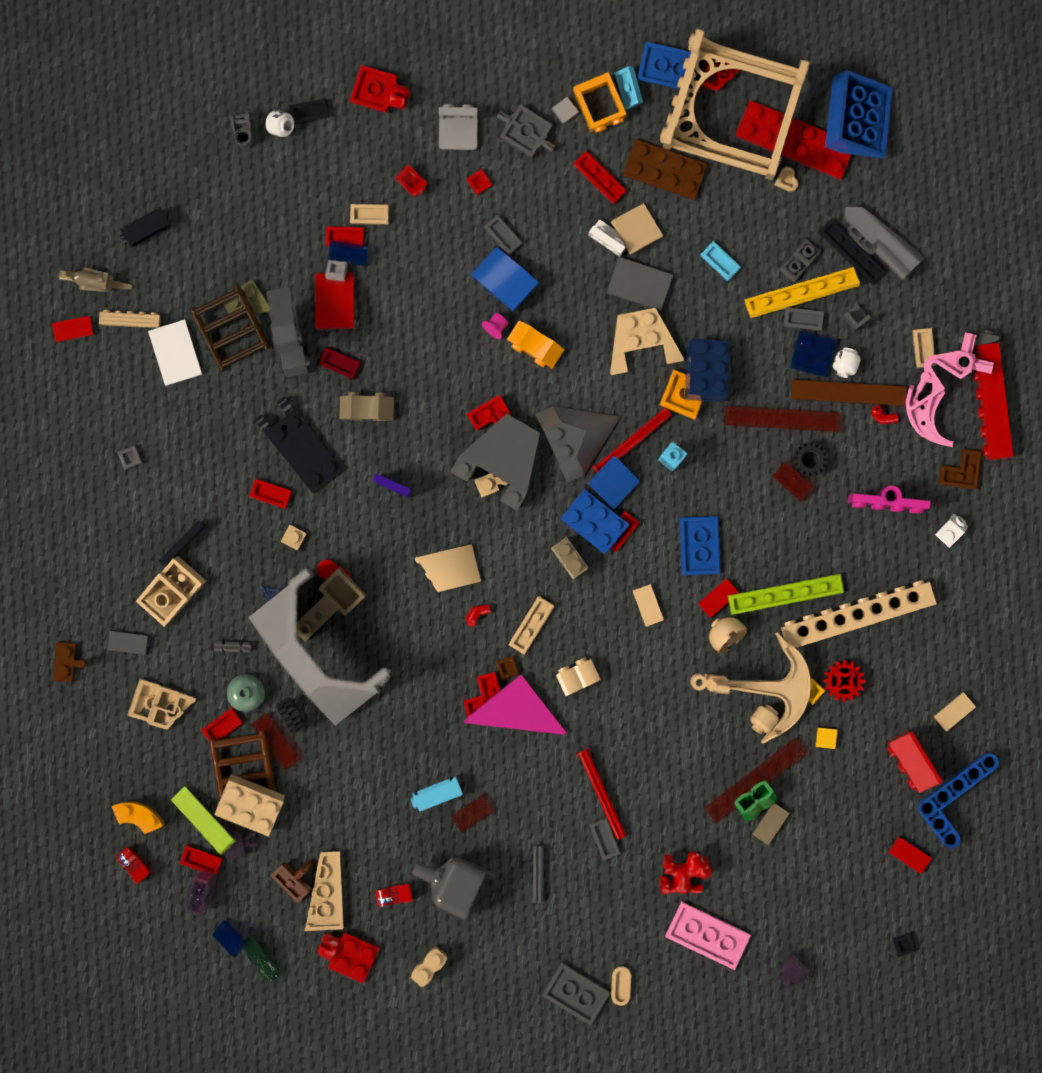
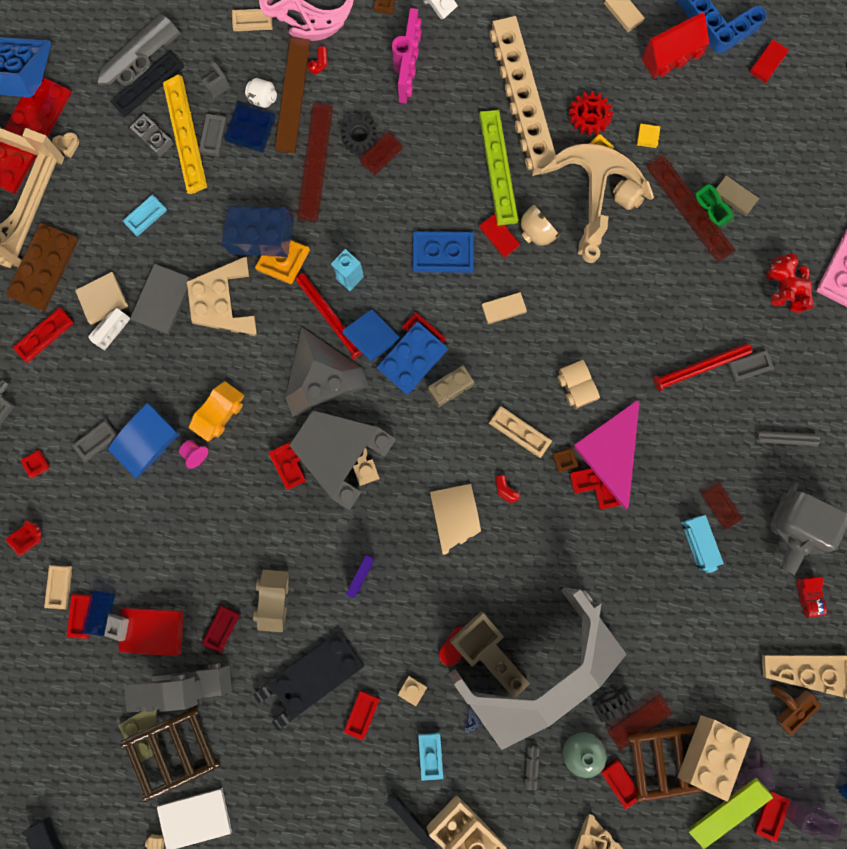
camera: 85 degrees left, 5 degrees down
(238, 556) = (430, 756): none -> medium azure plate

